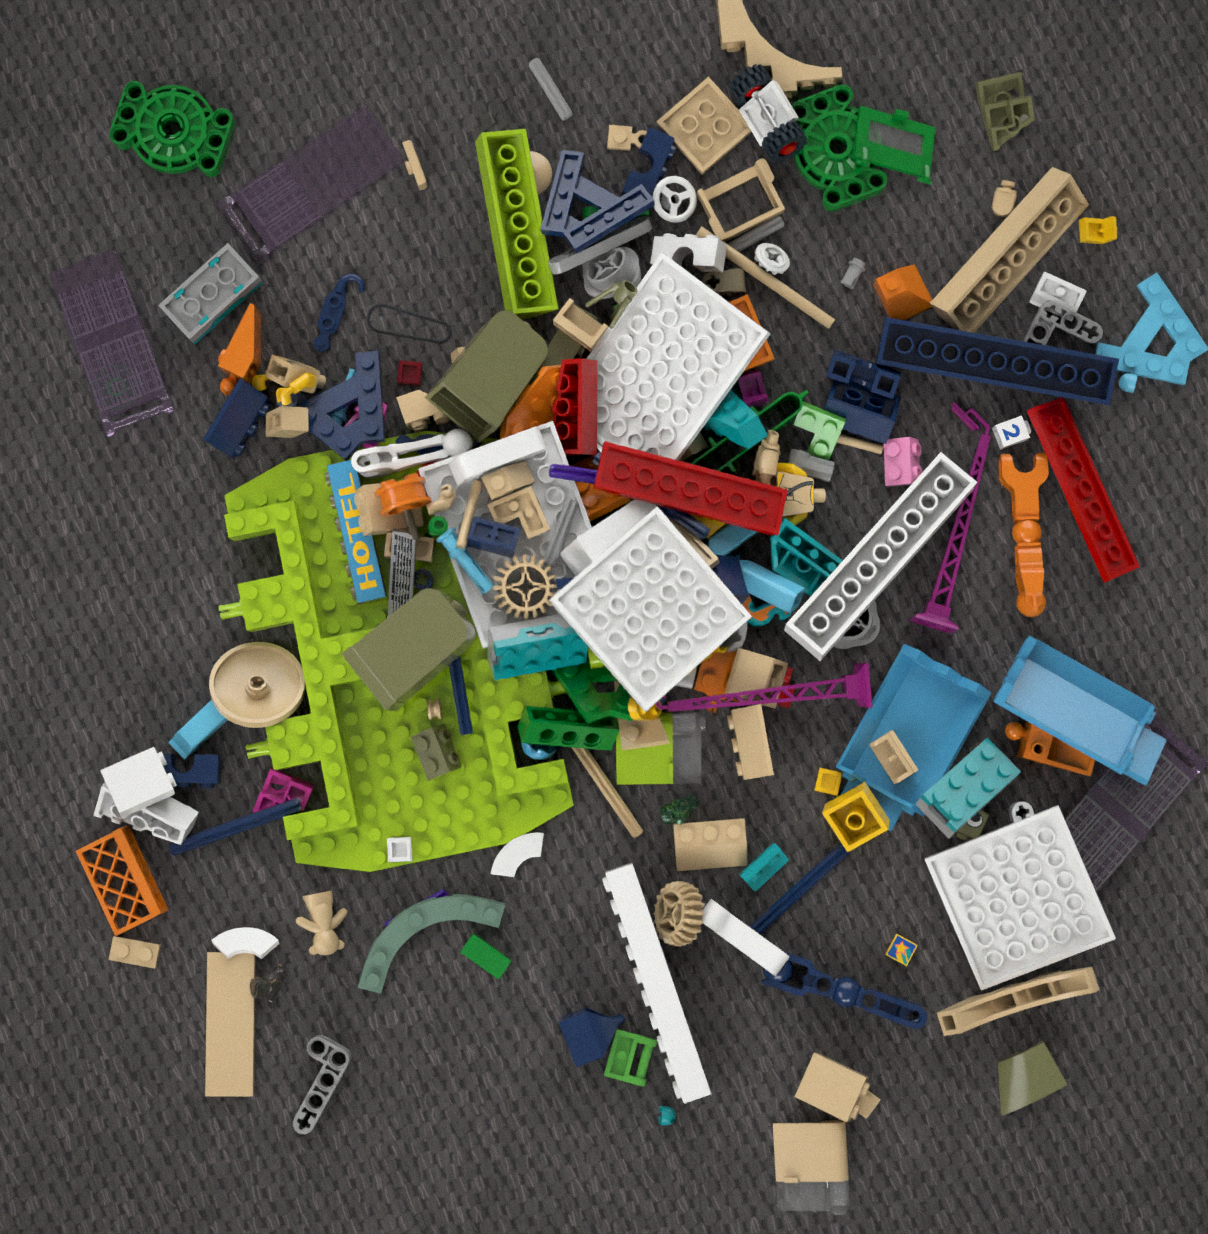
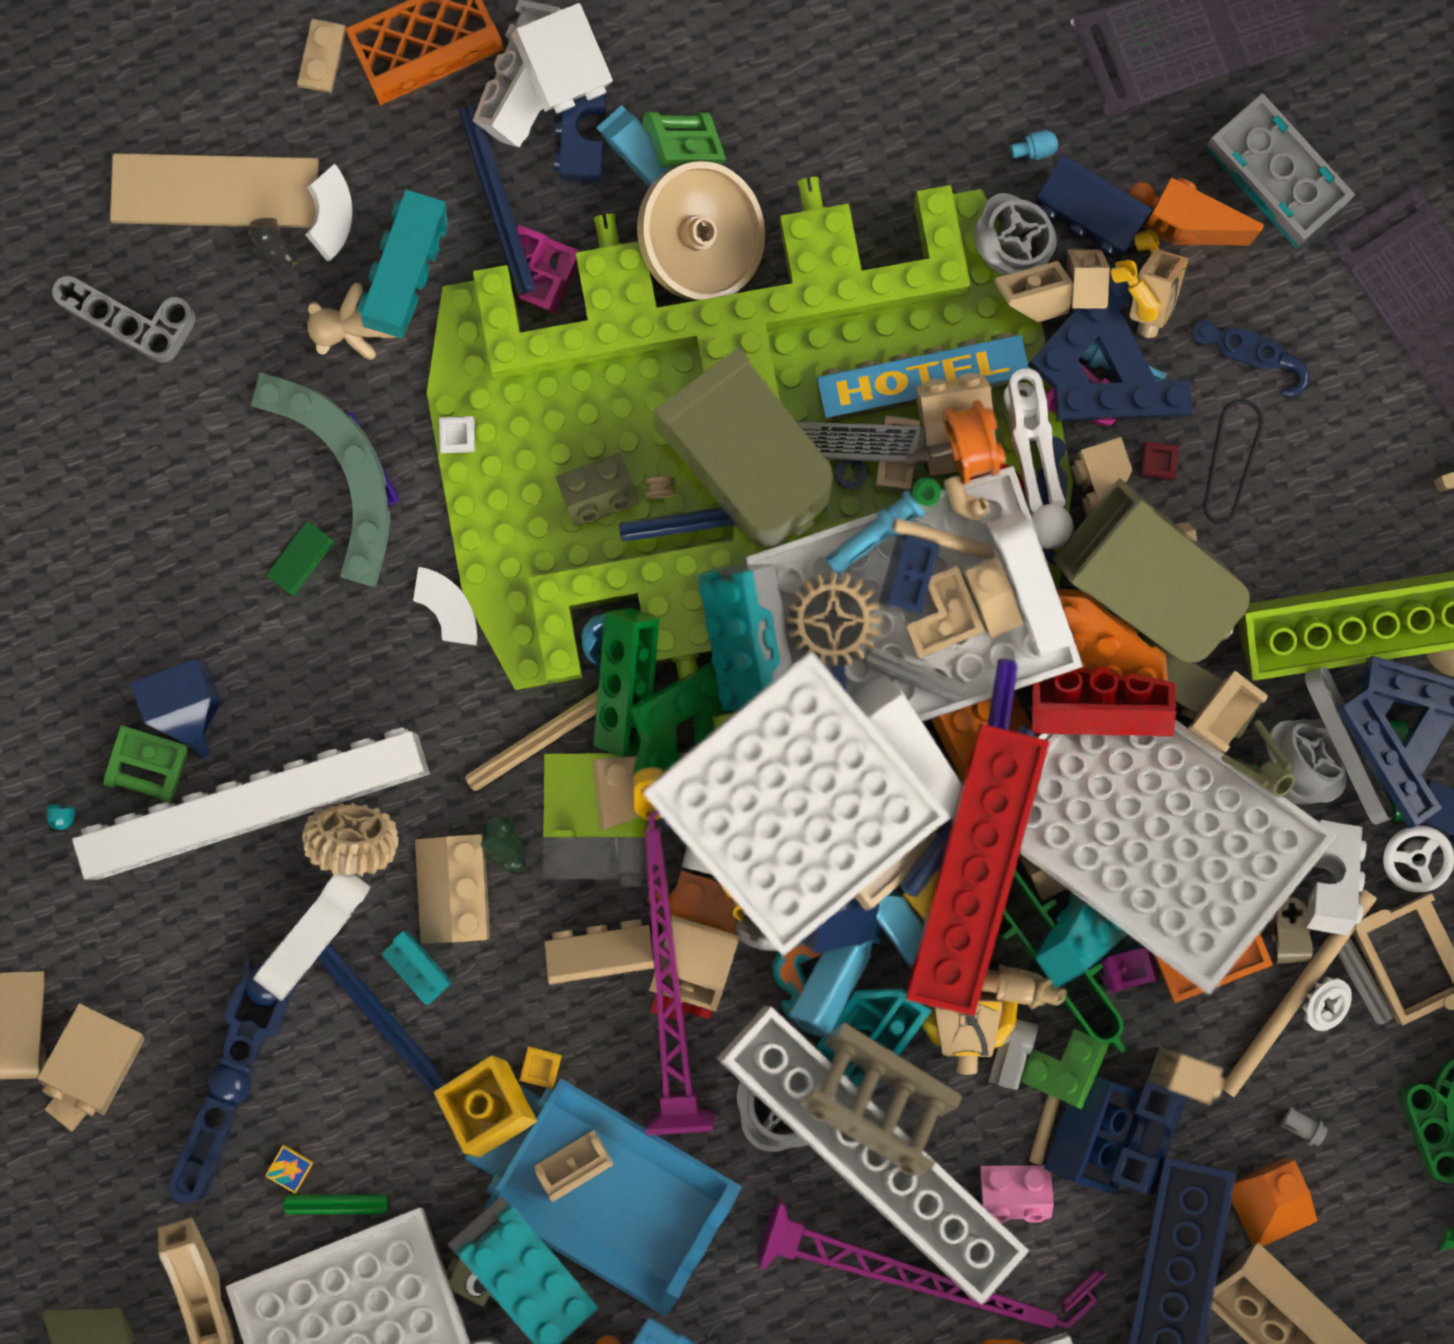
camera: 85 degrees right, 0 degrees up
(193, 457) = (1037, 145): none -> medium azure cylinder
(198, 698) = (683, 147): none -> bright green plate
(247, 469) = (1019, 221): none -> light grey piece
(283, 888) = (404, 264): none -> teal wedge
(296, 454) = (1038, 291): none -> tan slope
(823, 349) = (1186, 1075): none -> tan brick
(832, 534) = (906, 1082): none -> dark tan fence
(923, 917) = (335, 1204): none -> green axle

